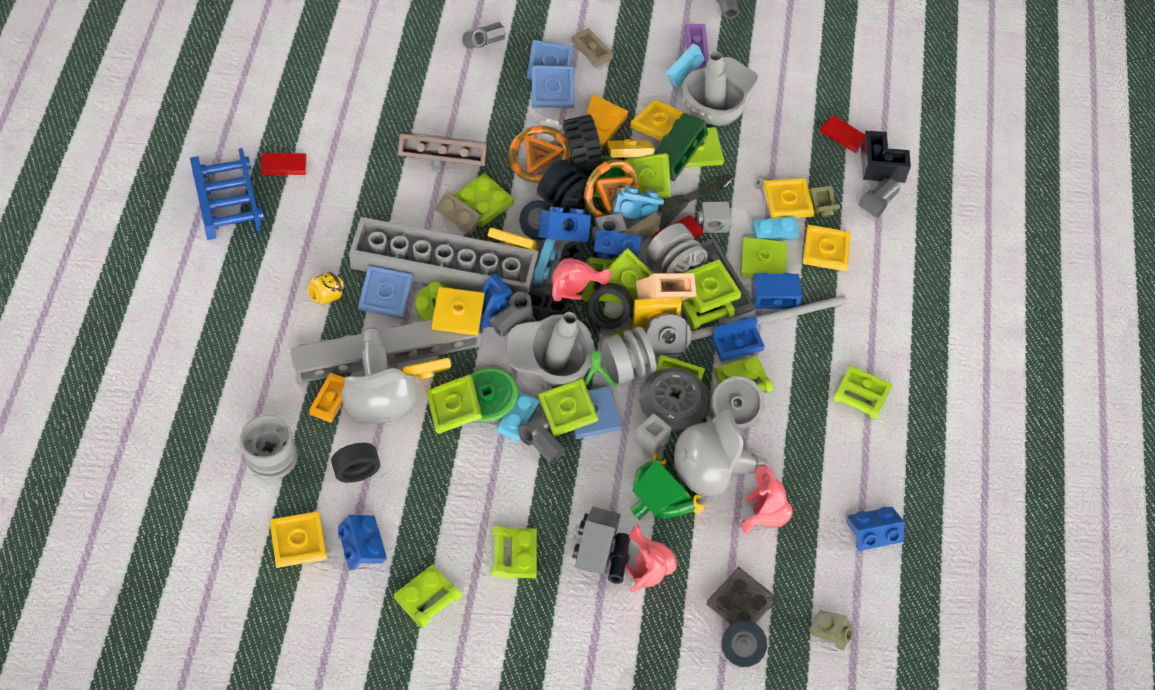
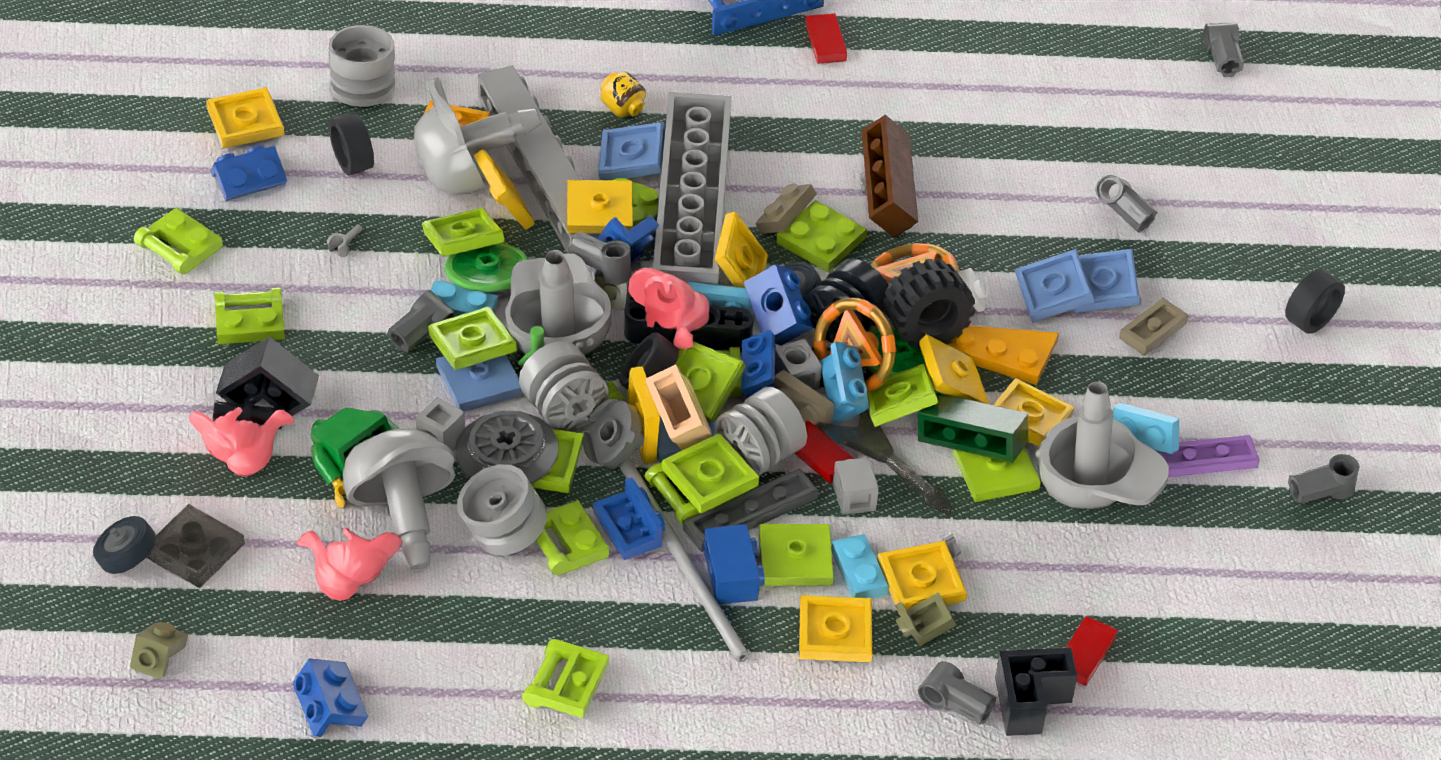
camera: 85 degrees right, 10 degrees down
(450, 482) = (342, 241): none -> light grey hand

